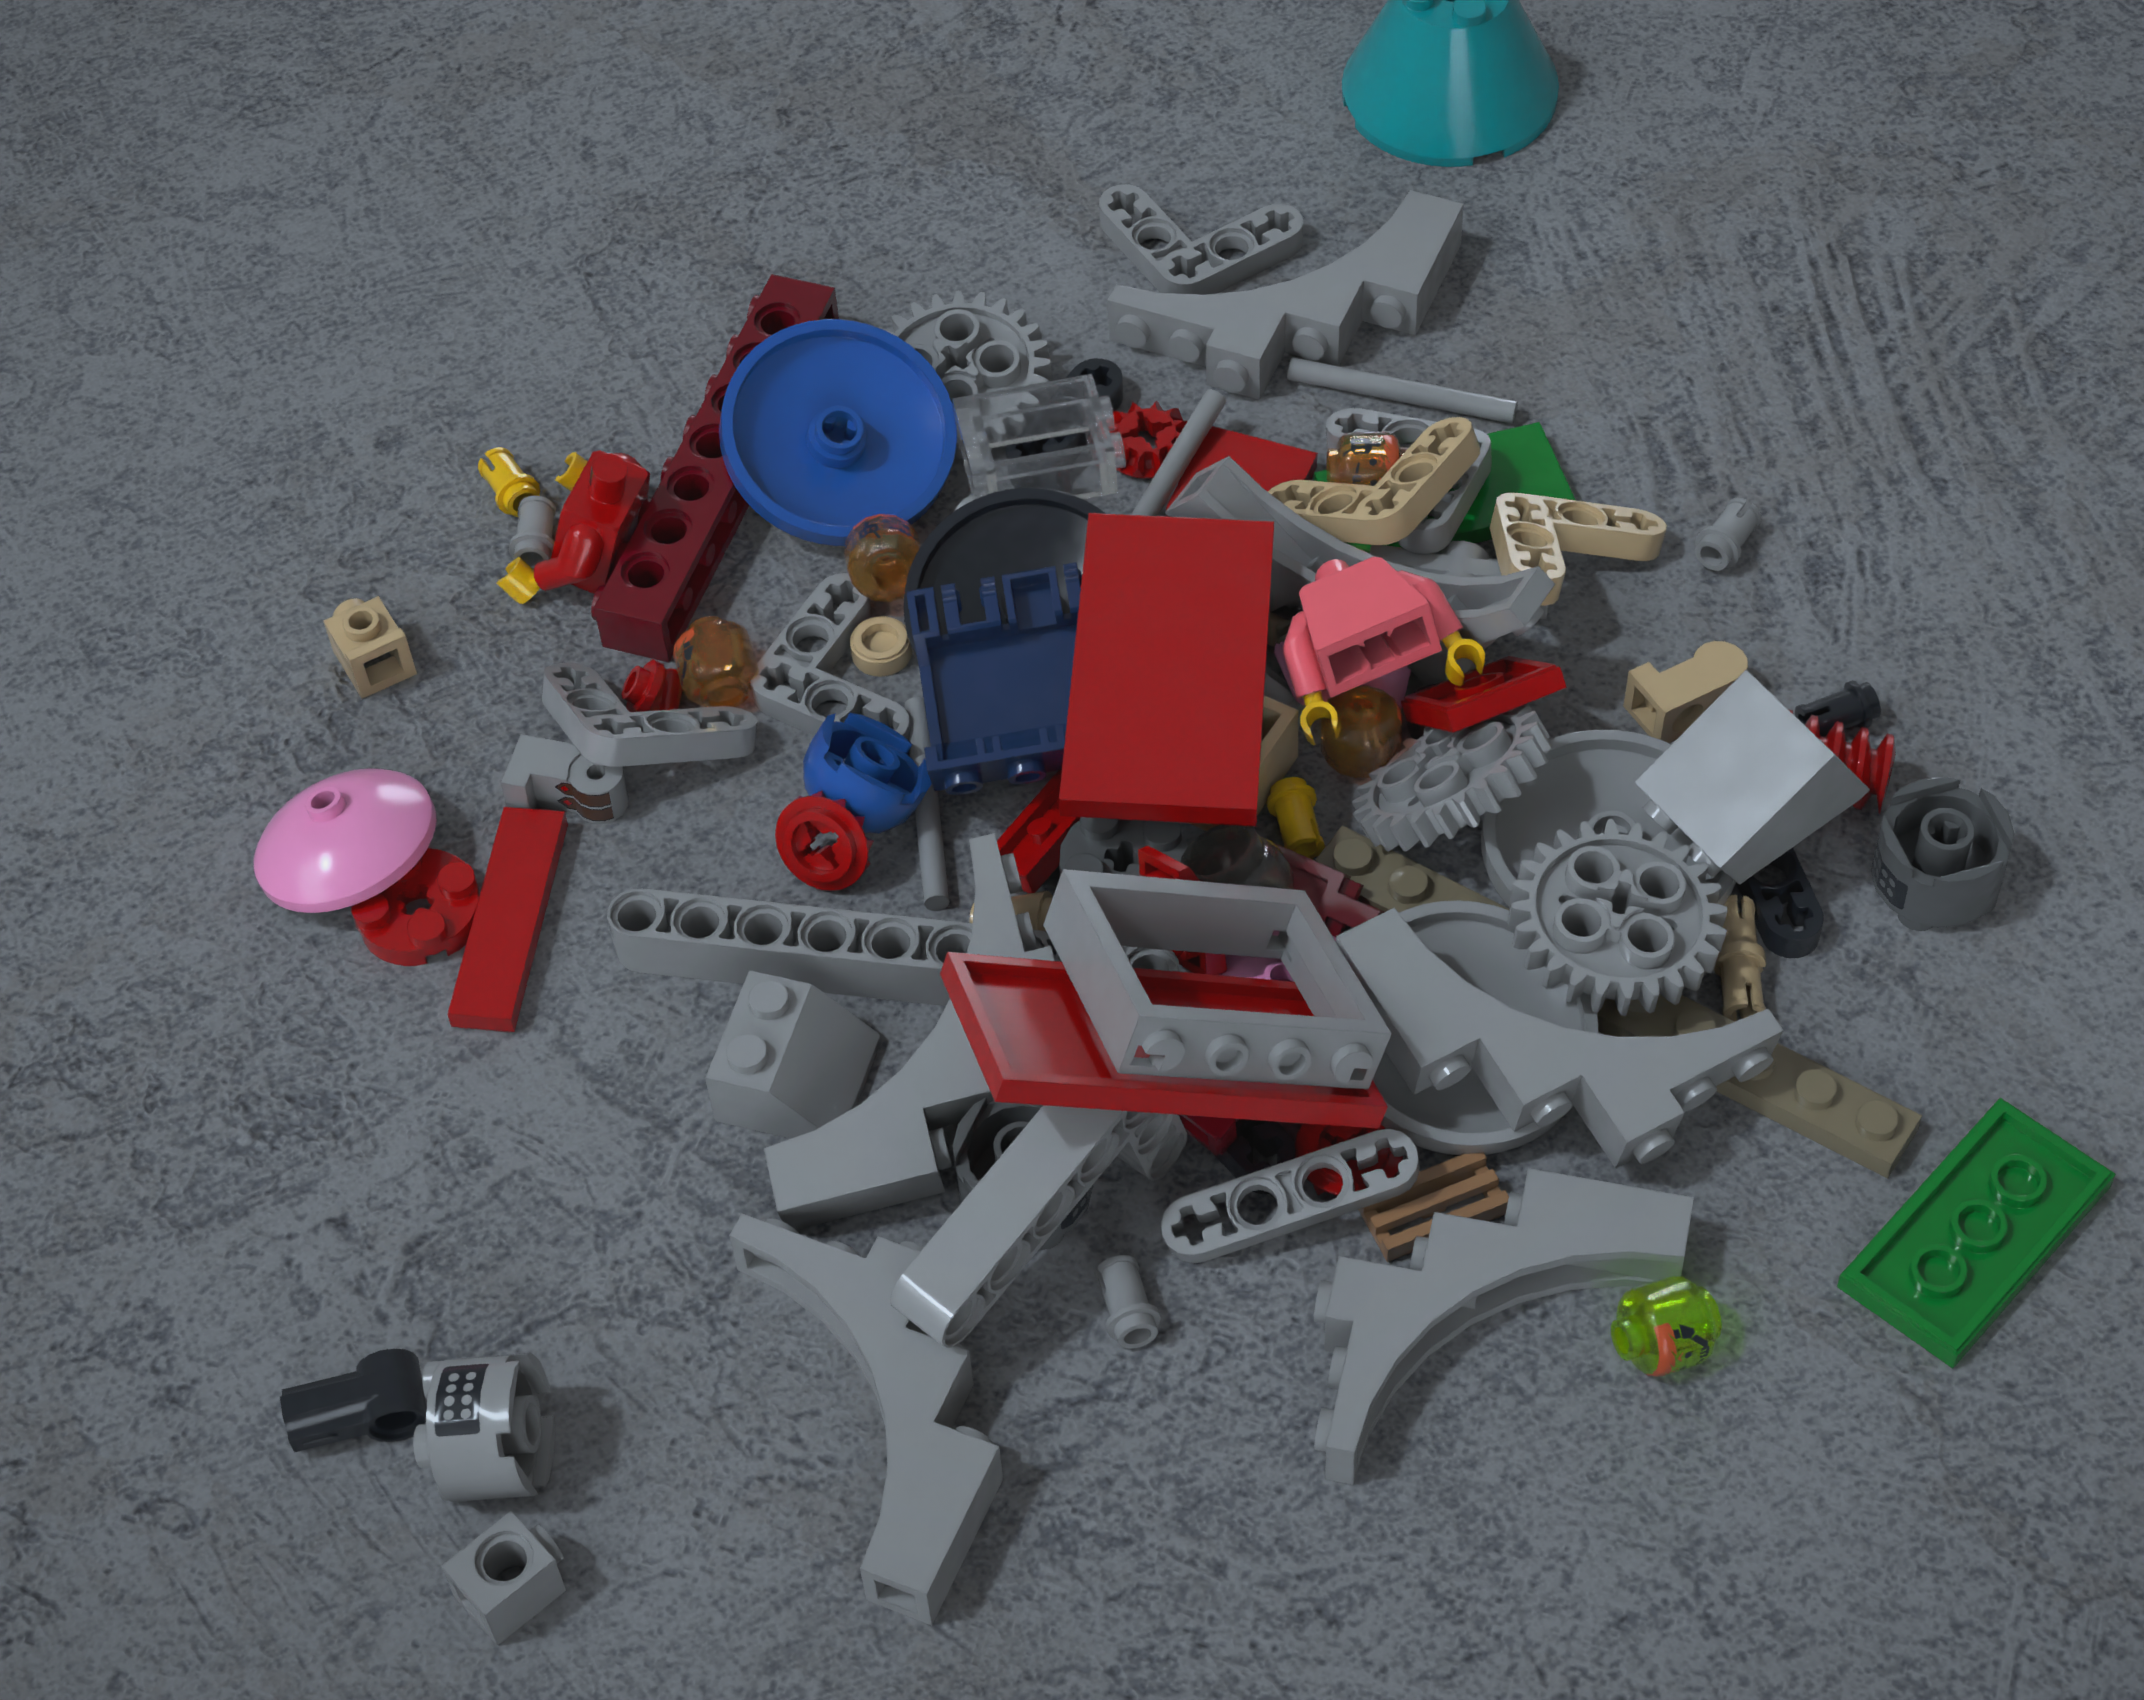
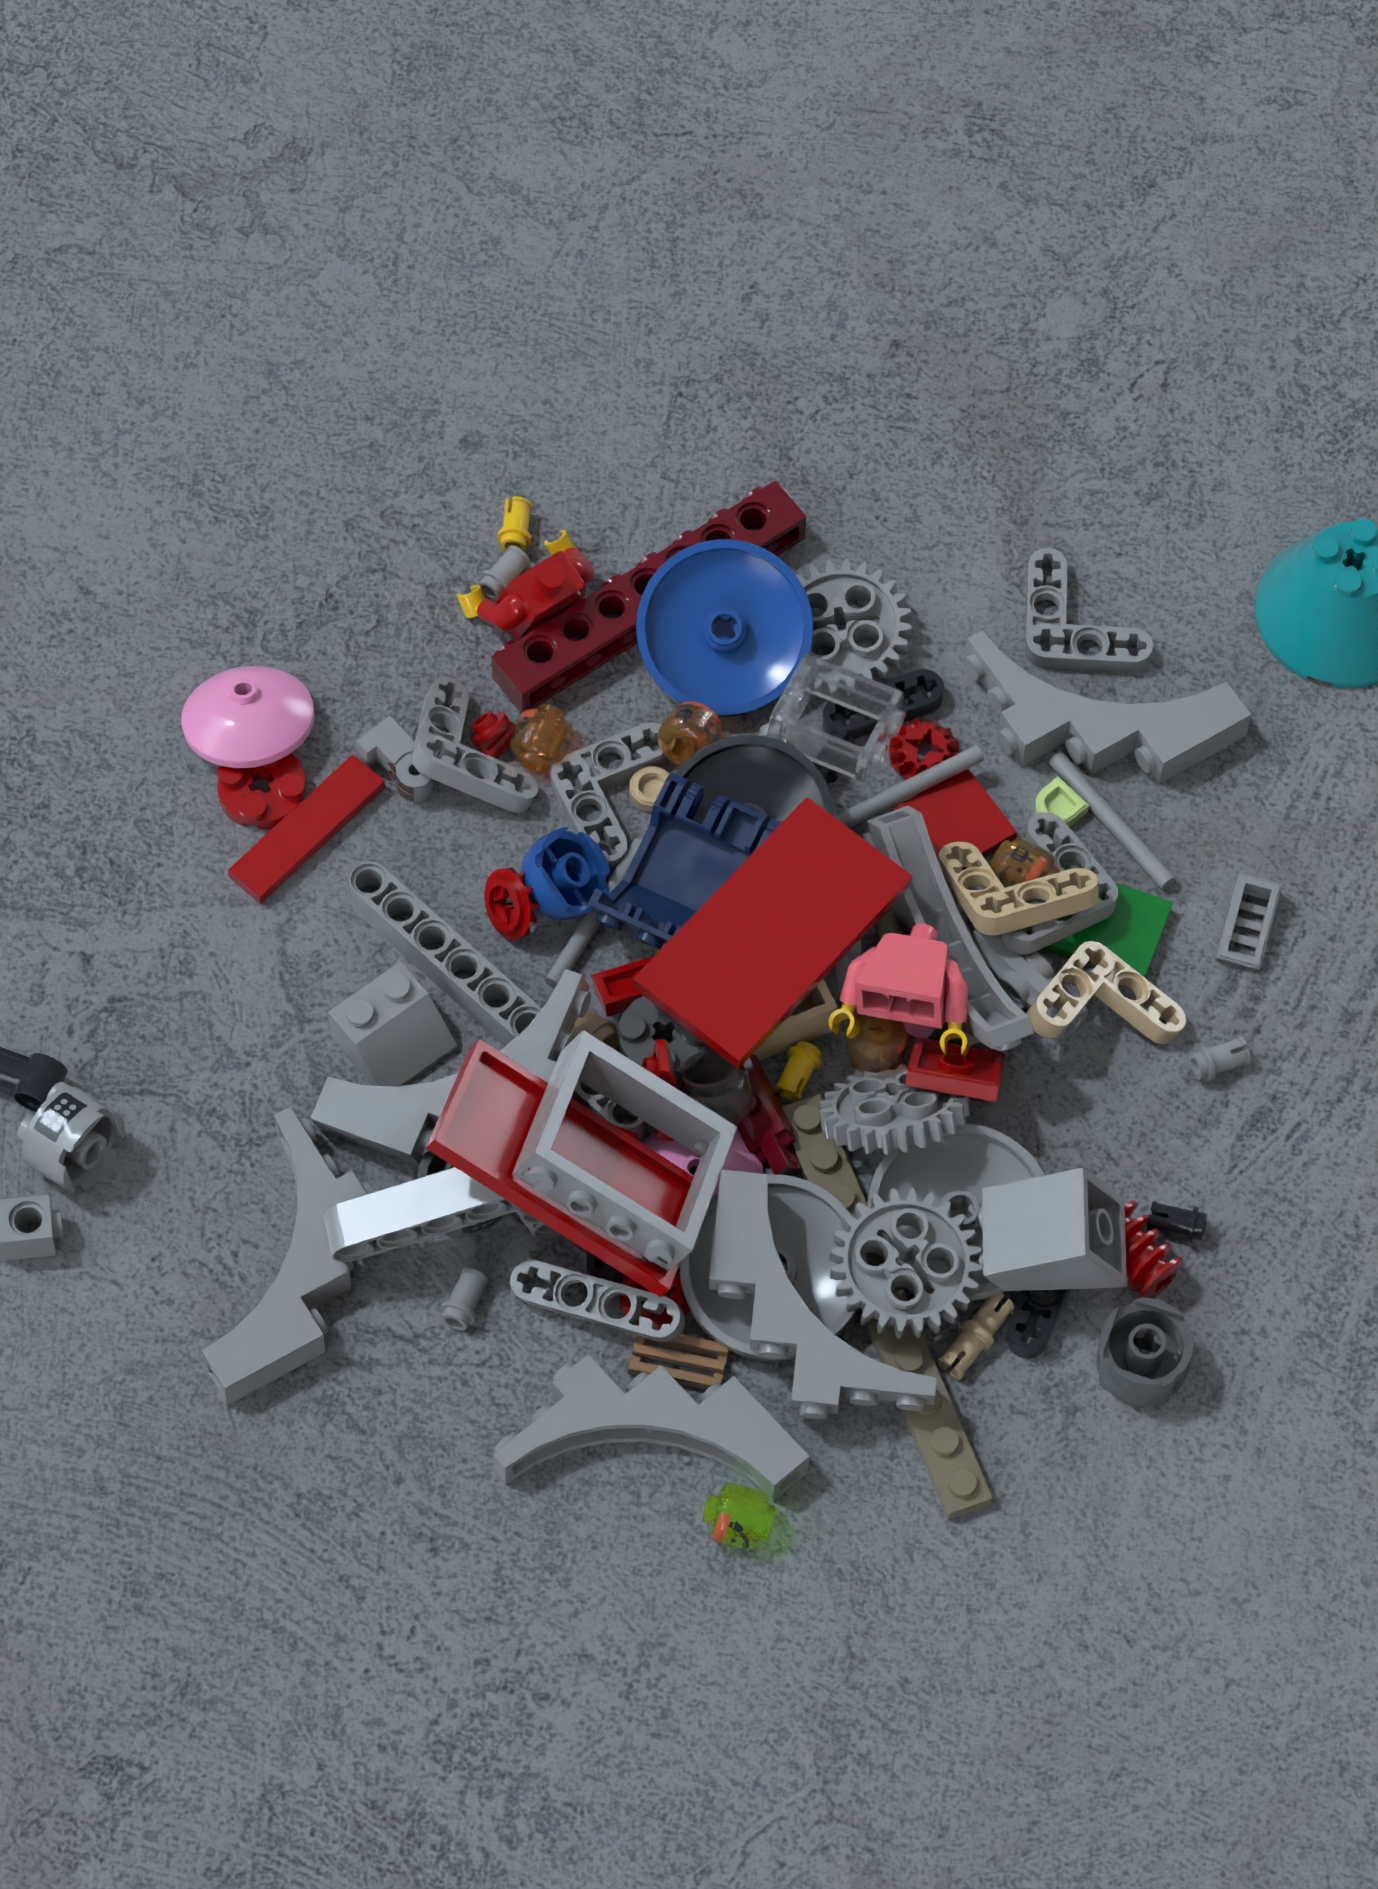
camera: 30 degrees right, 10 degrees up
(364, 632) = (352, 589): tan brick -> none
(1327, 398) = (1061, 801): none -> yellowish green tile
(1631, 358) = (1260, 889): none -> light grey slope
(1676, 697) = (1100, 1148): tan leg -> none
(1975, 1232) = (966, 1584): green tile -> none

